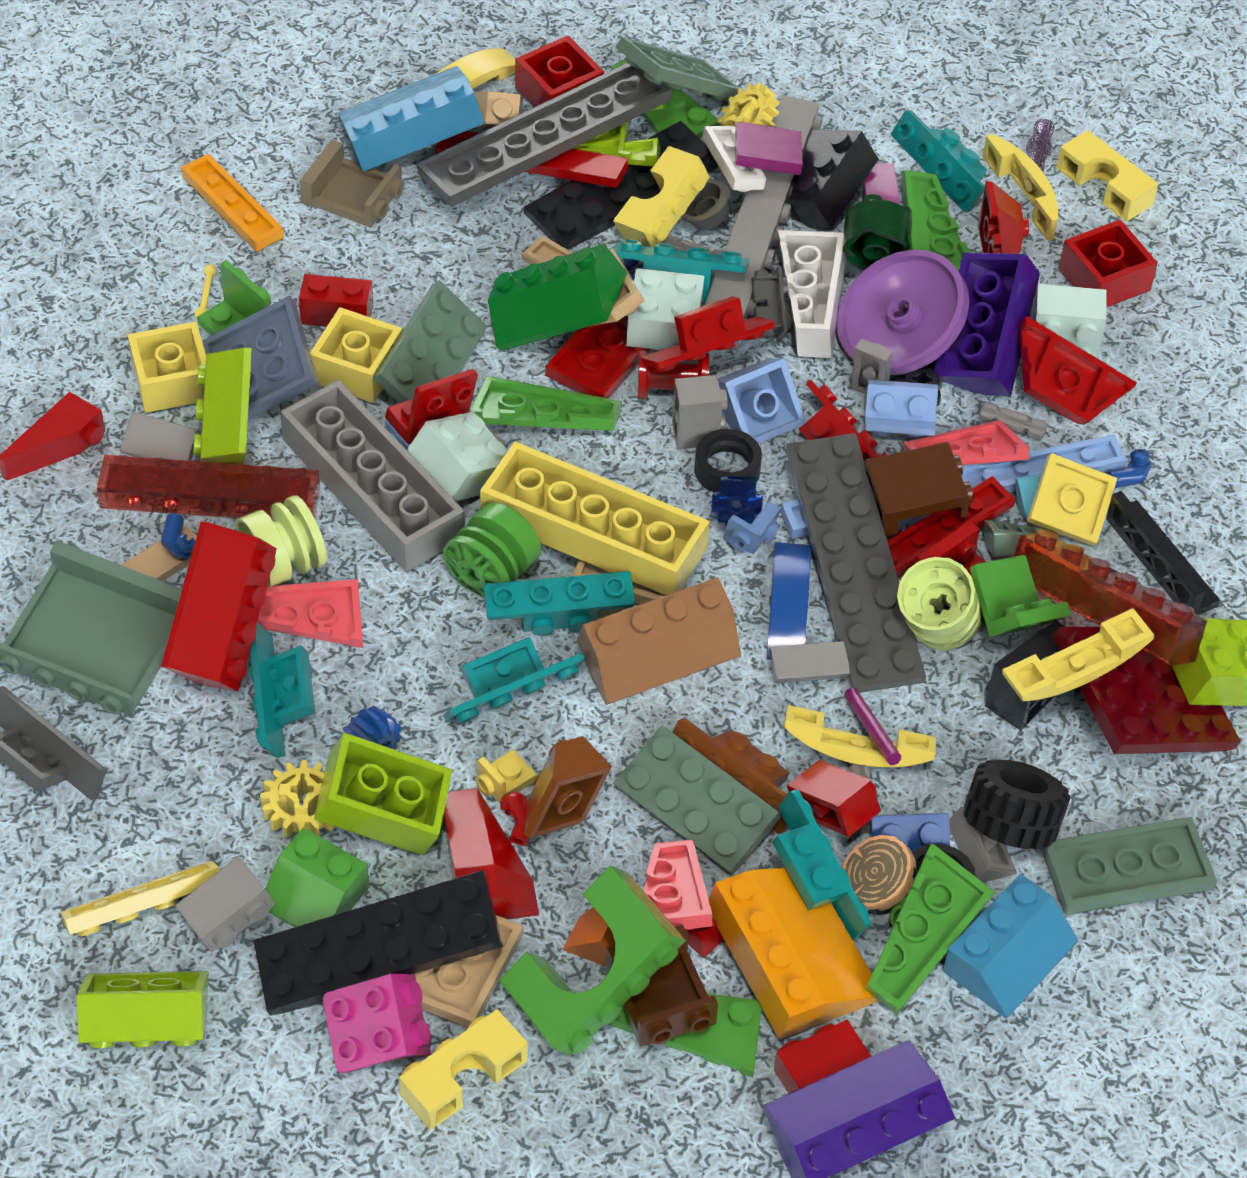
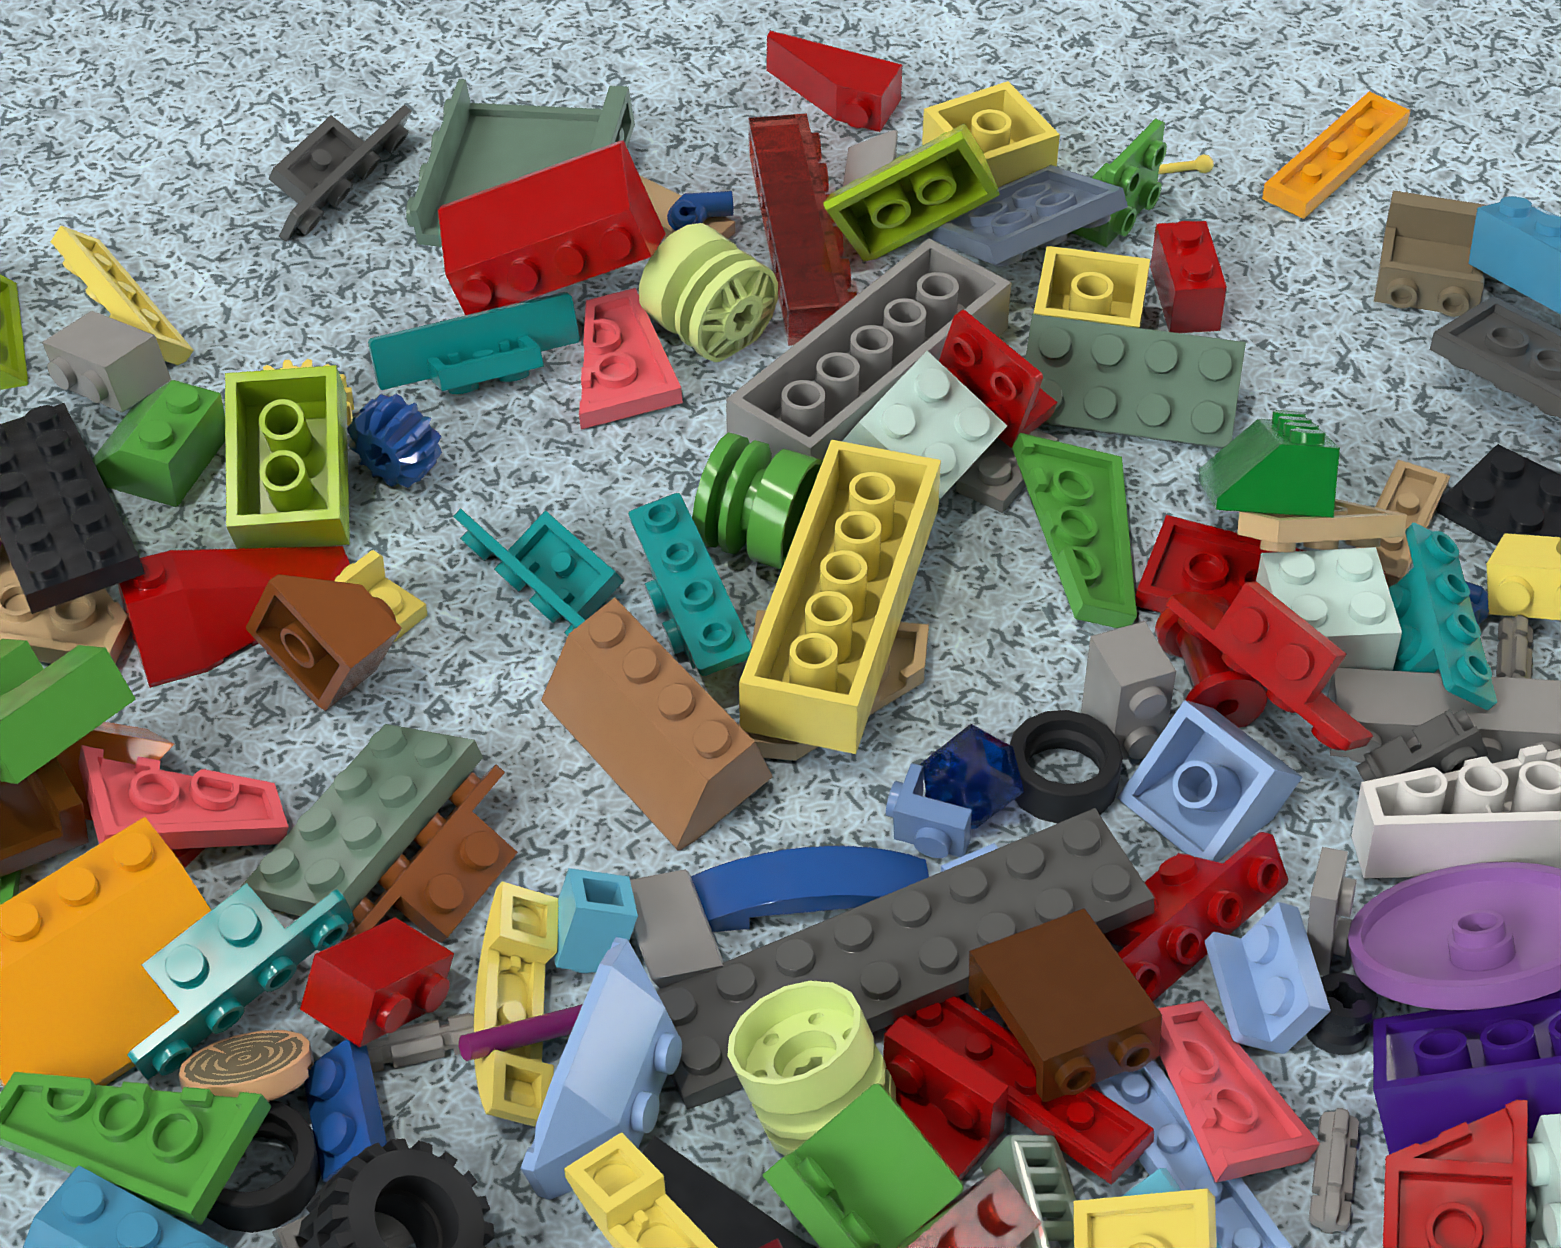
camera: 80 degrees right, 5 degrees down
(808, 686) = (590, 916): none -> medium azure brick
(917, 697) = (606, 1072): none -> light blue wedge

